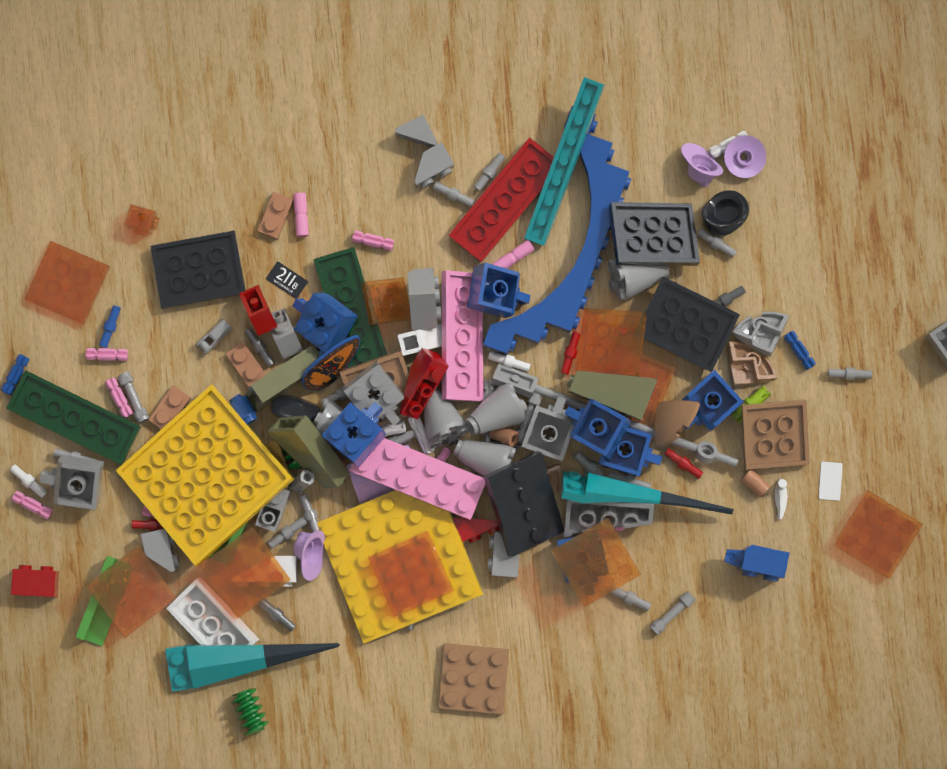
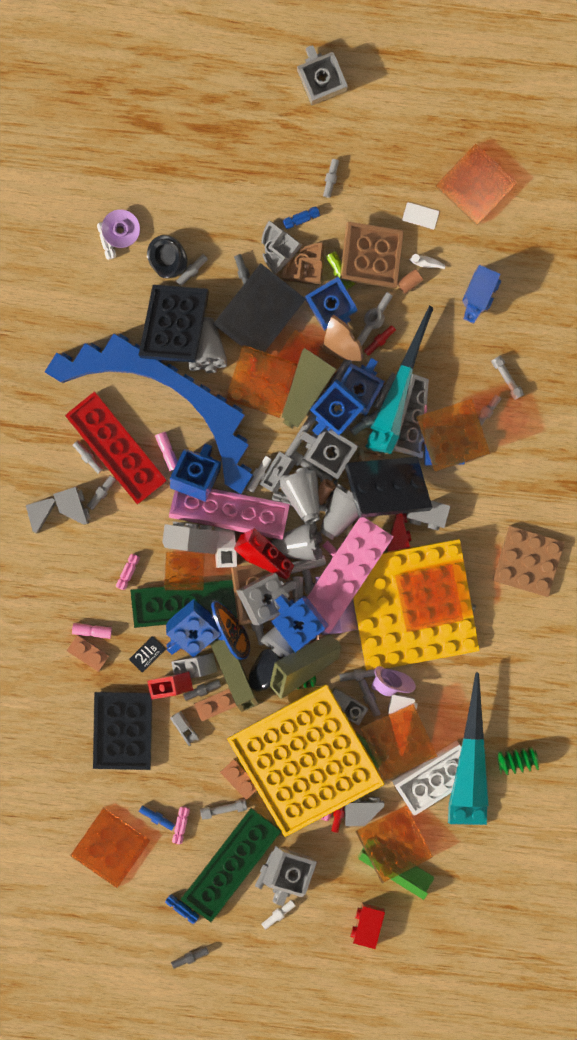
camera: 80 degrees left, 5 degrees up
(32, 505) = (300, 915): bright pink axle -> none
(118, 397) = (220, 822): bright pink axle -> none
(141, 220) = (68, 771): clear orange brick -> none
(244, 408) = (253, 714): blue brick -> none
(277, 615) = (439, 720): flat silver bar -> none
(301, 482) = (329, 676): light grey bar -> none
(564, 161) = (92, 388): teal plate -> none
(570, 353) = (262, 418): red bar -> none
(701, 164) = (120, 268): lavender piece -> none

